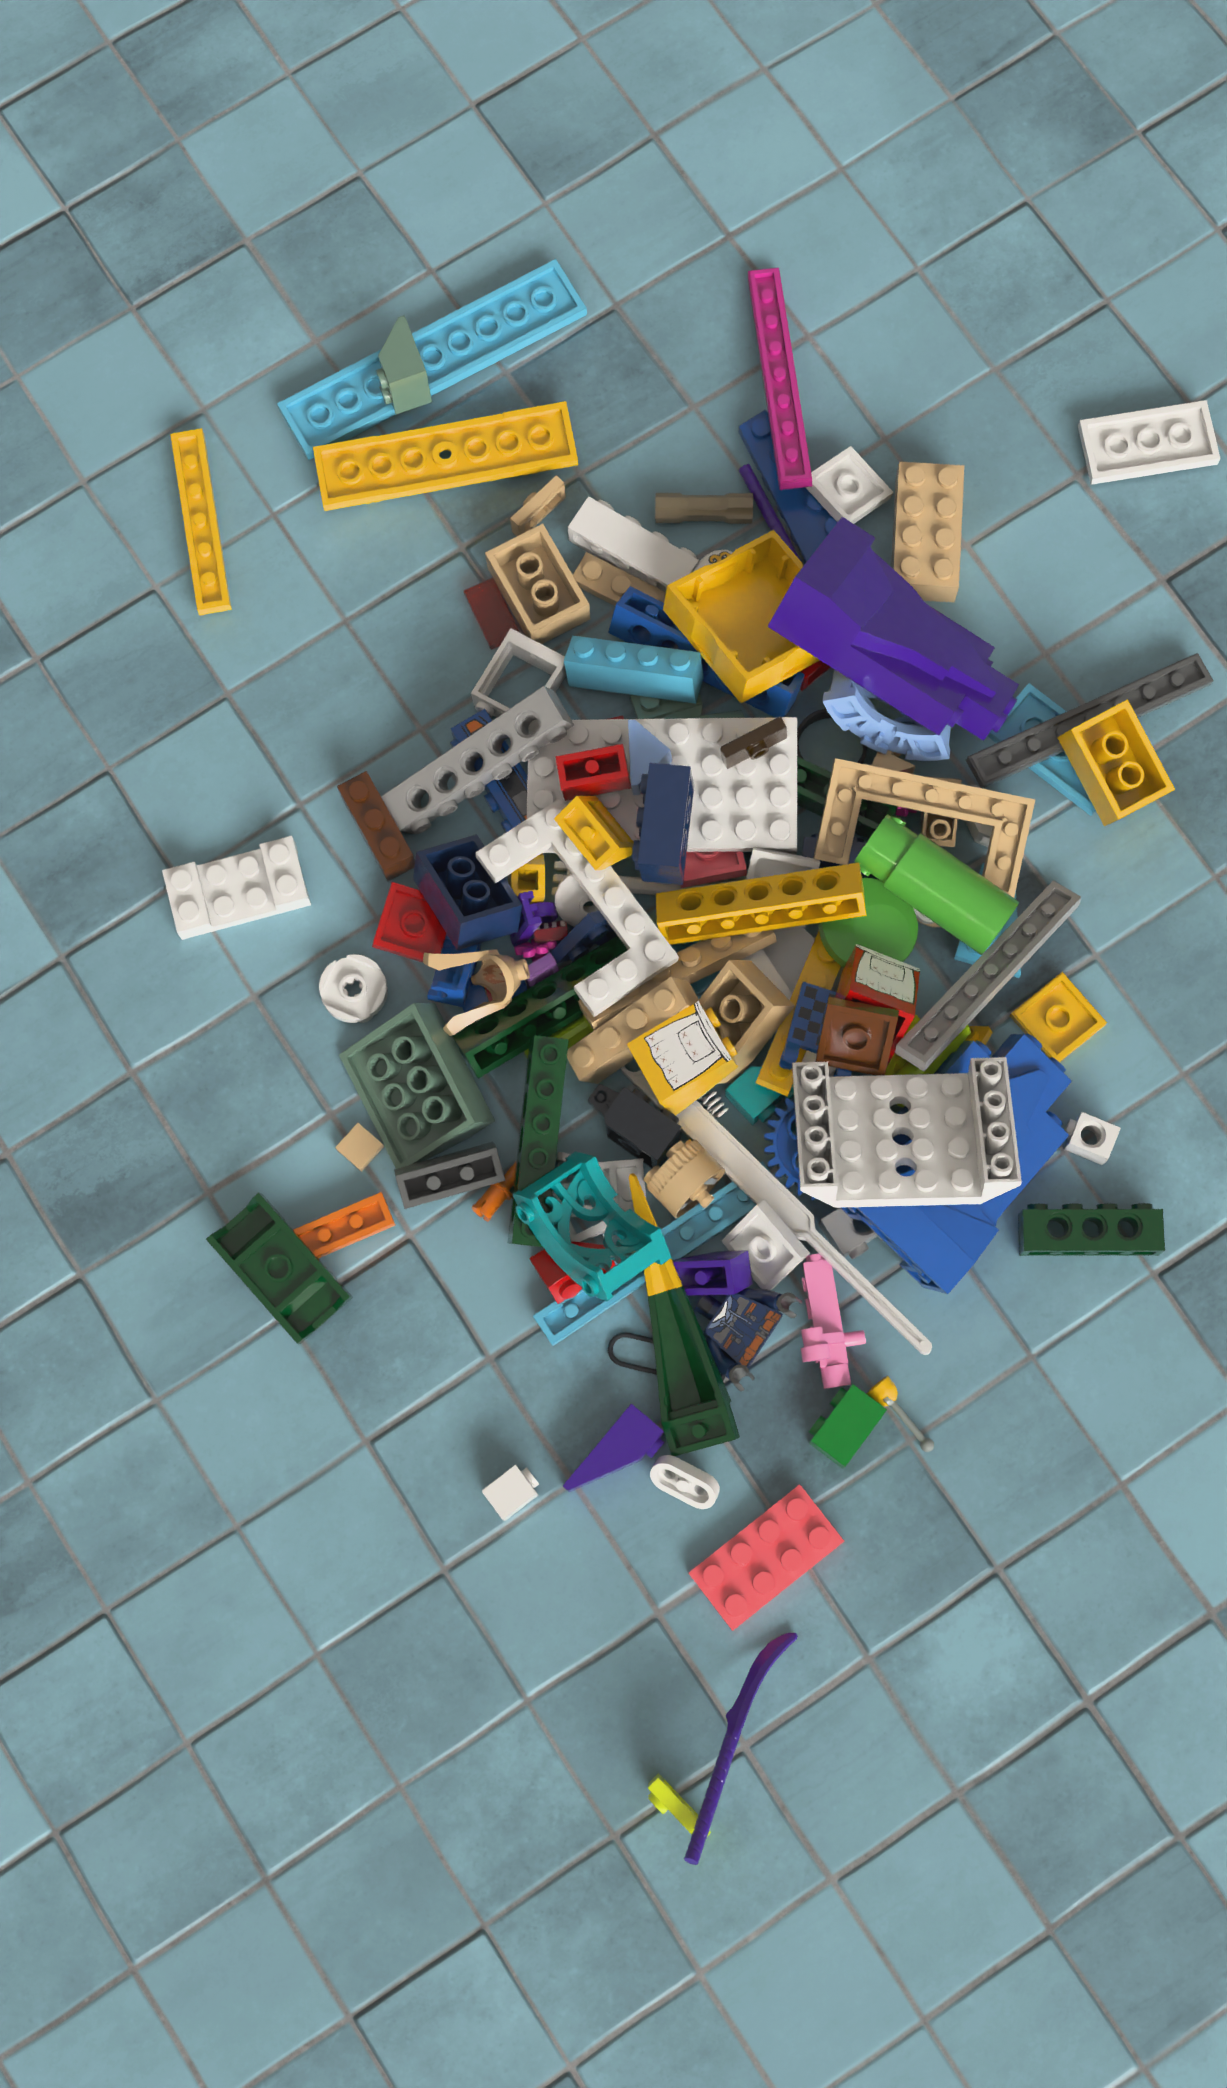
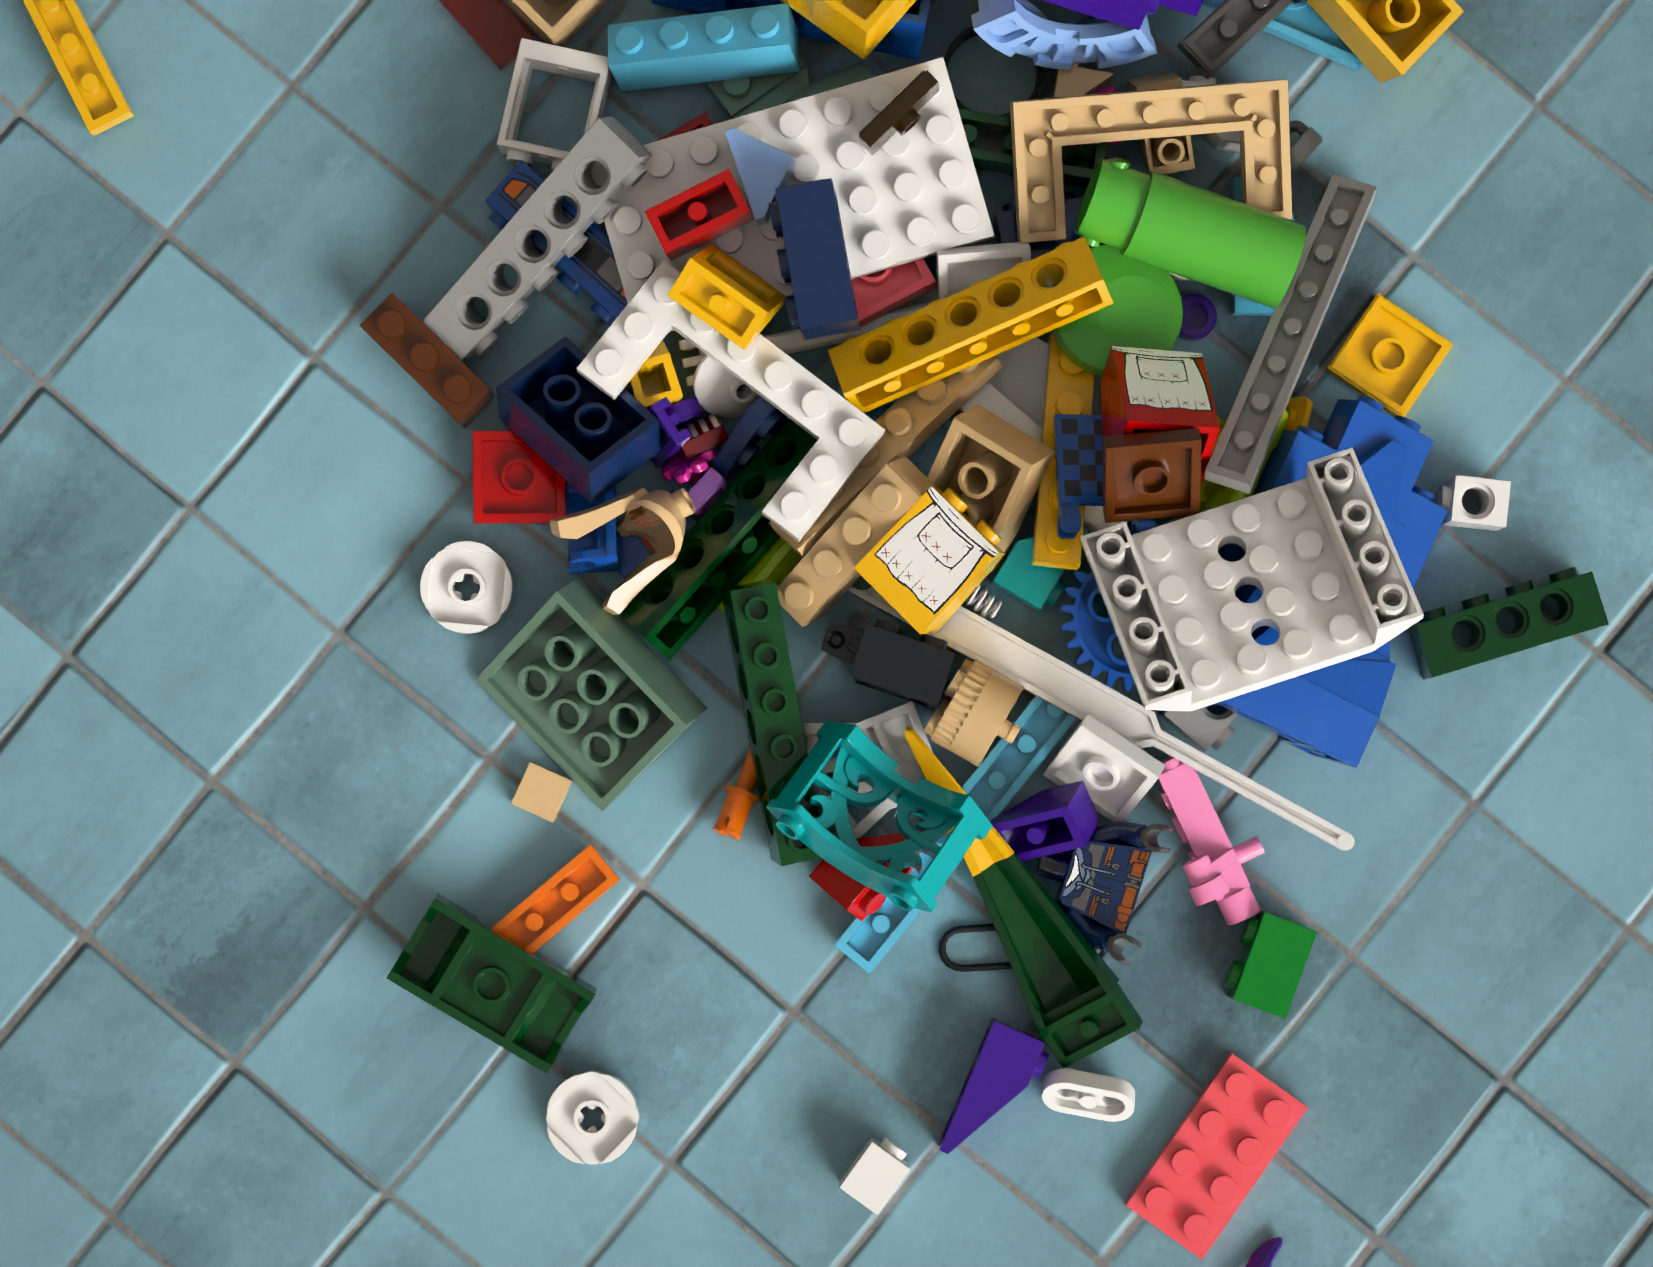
camera: 25 degrees left, 10 degrees up
(236, 888) = (268, 498): white piece -> none
(301, 1383) = (592, 1144): none -> white plate
(449, 1175) = (671, 797): dark grey brick -> none
(886, 1394) = (1306, 907): hinge -> none
(926, 952) = (1198, 317): none -> dark purple tile
(1036, 855) = (1304, 145): none -> dark grey tile

